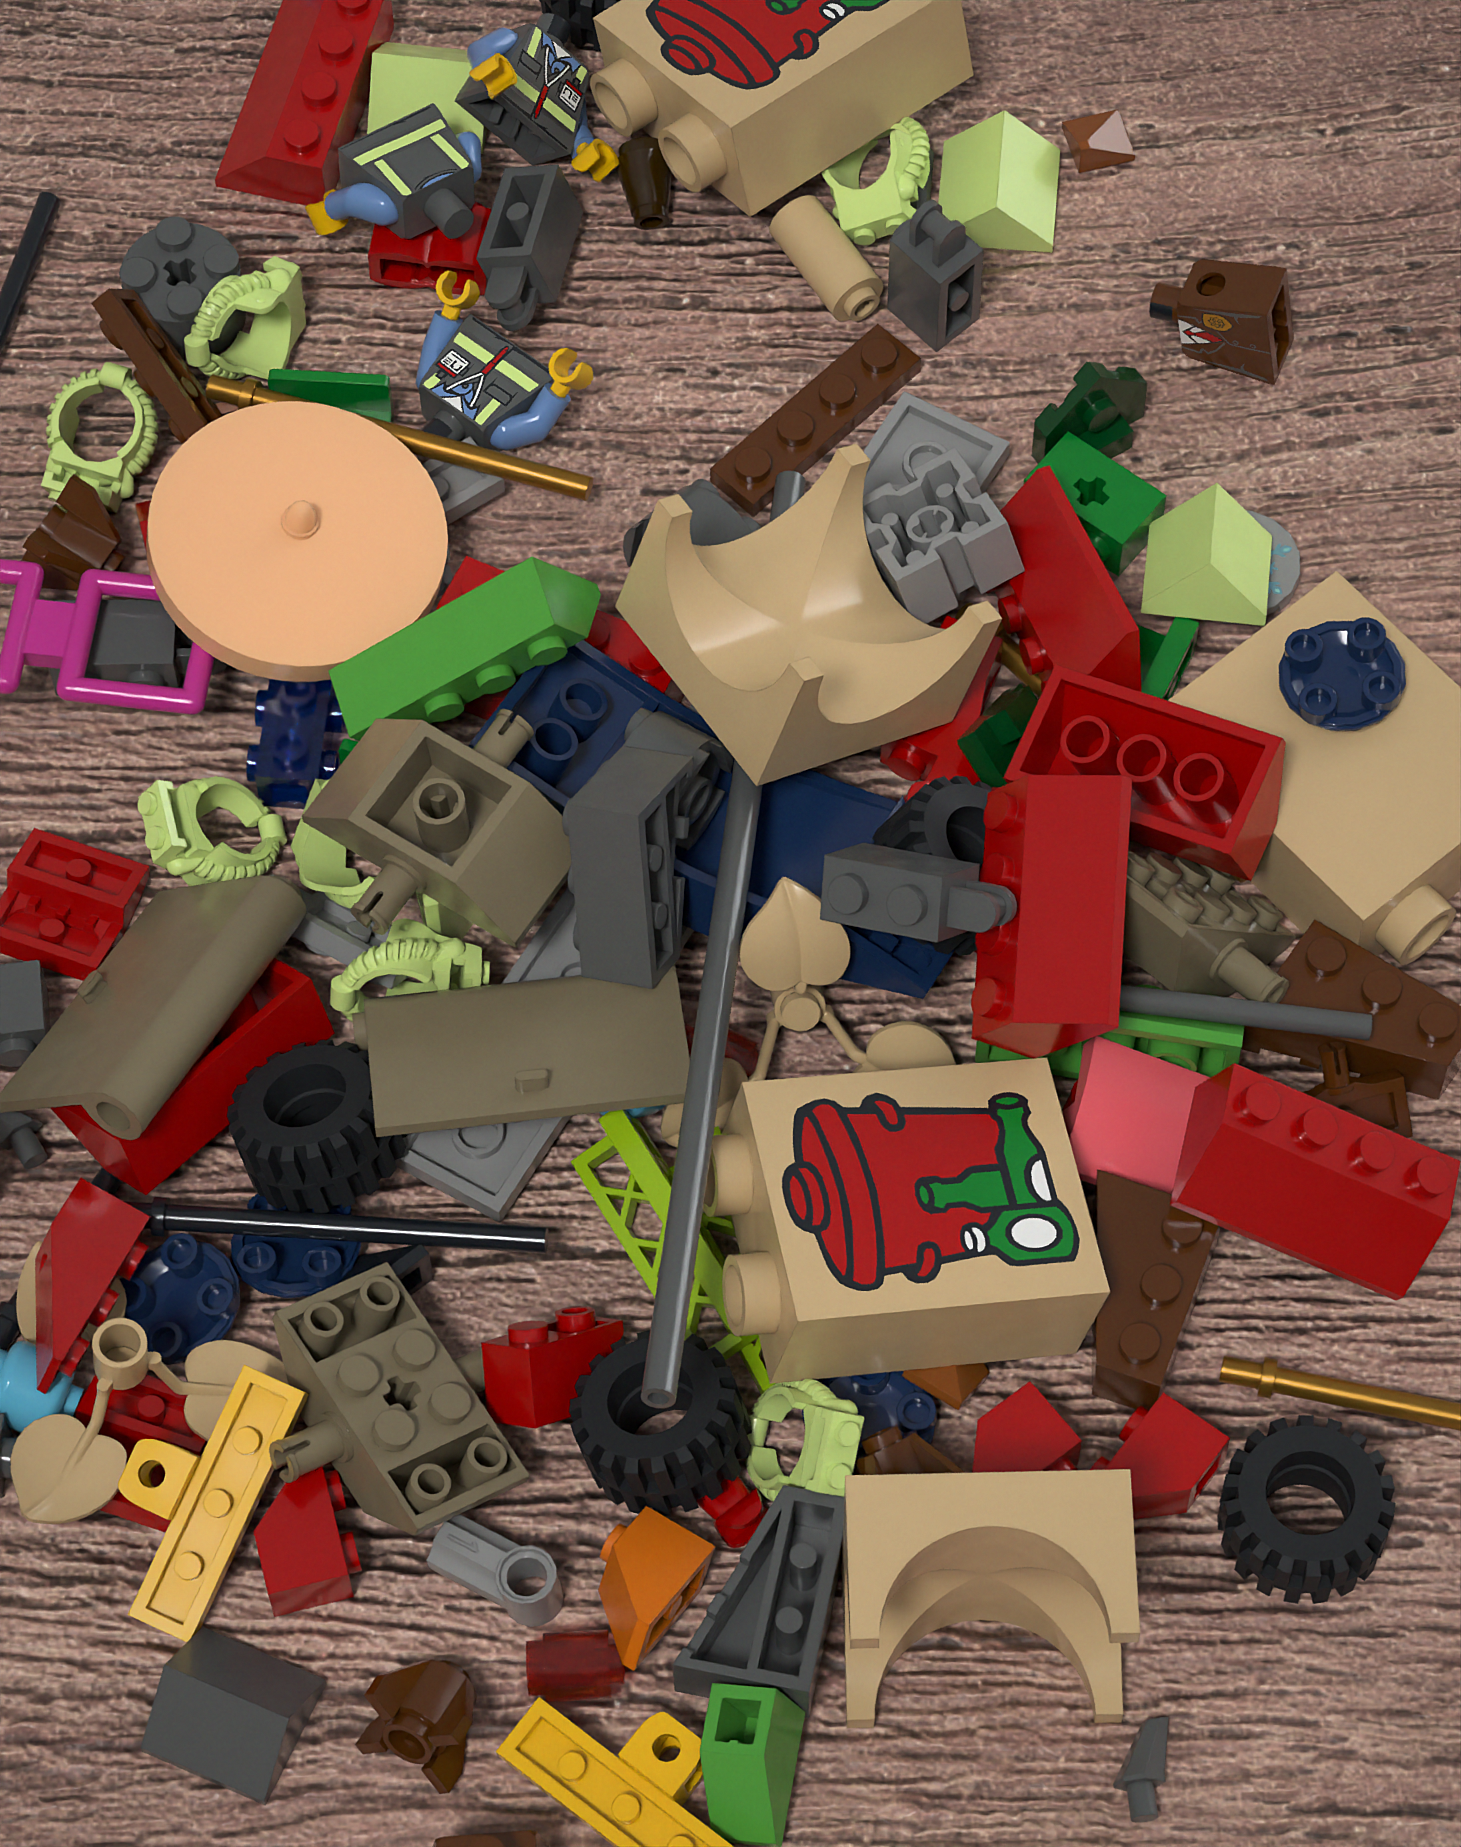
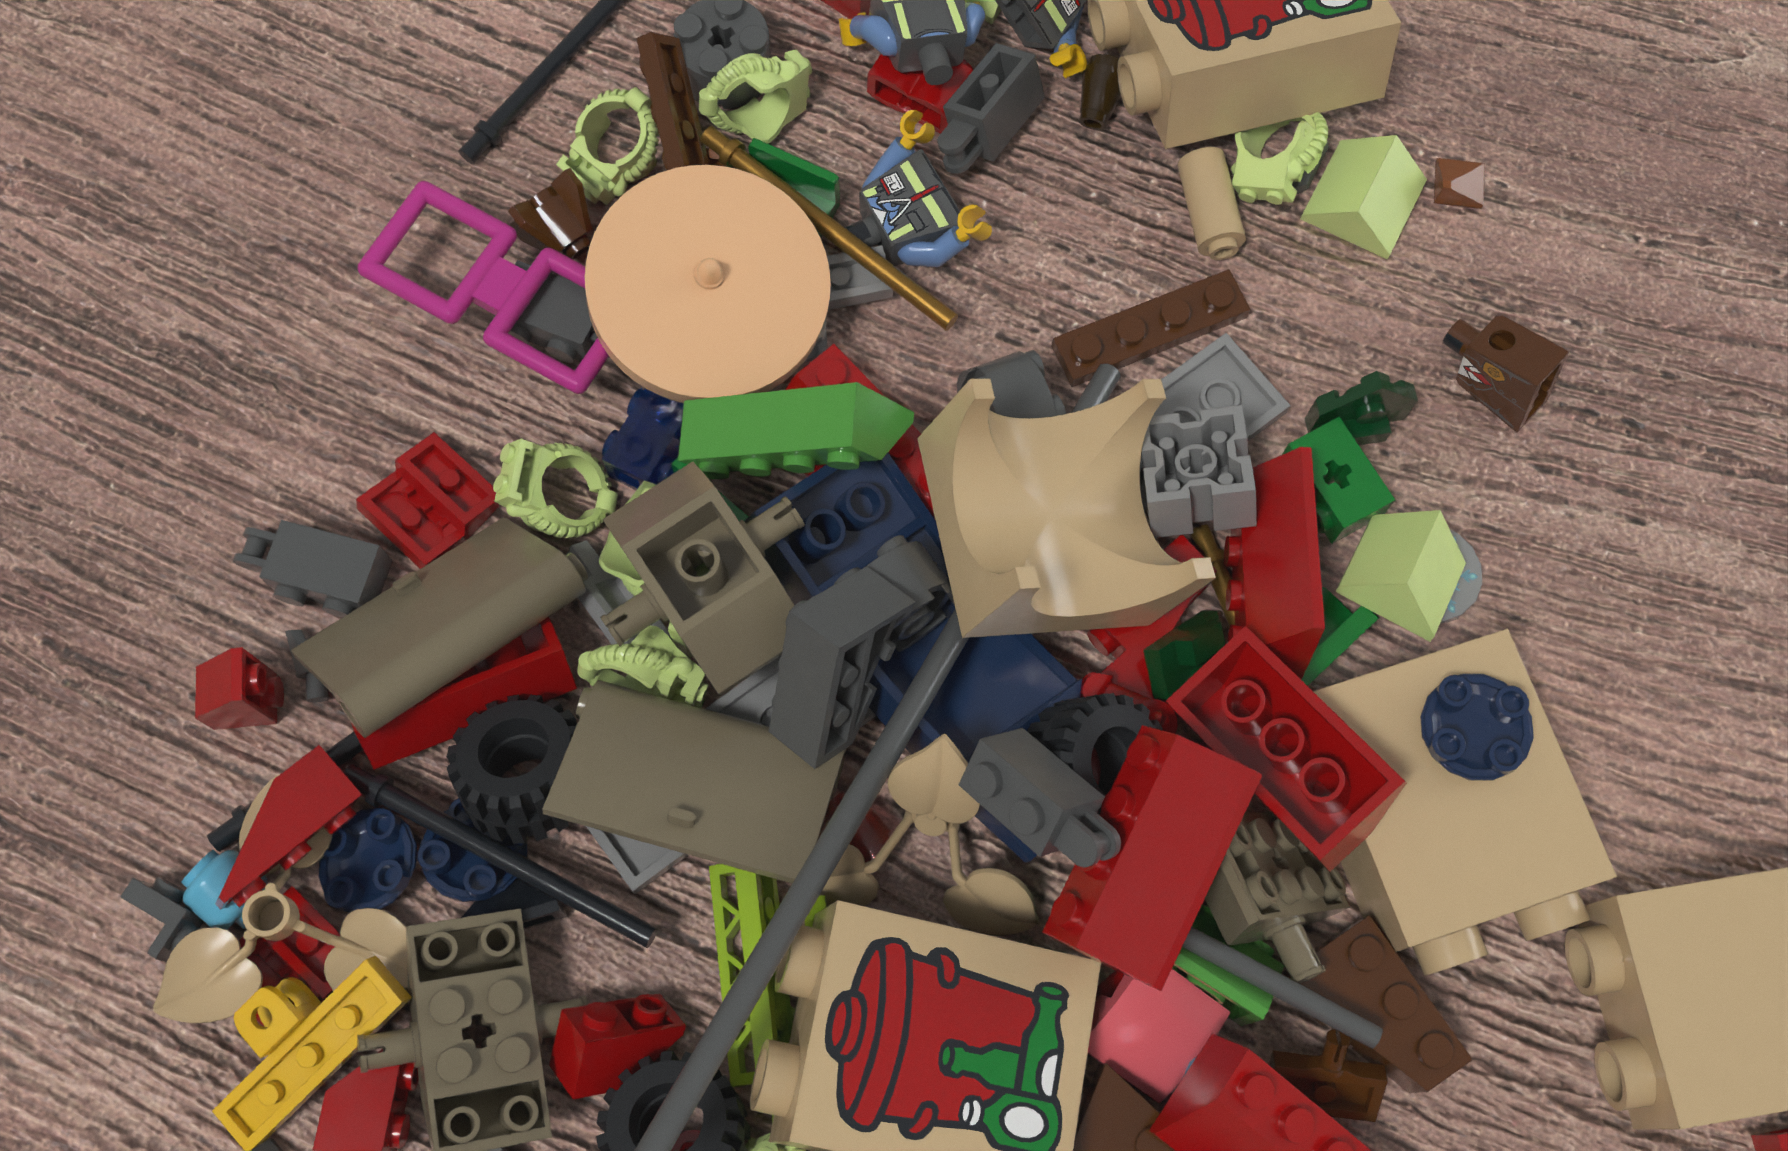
camera: 20 degrees right, 10 degrees up
(934, 276) = (1287, 249): dark grey brick -> none

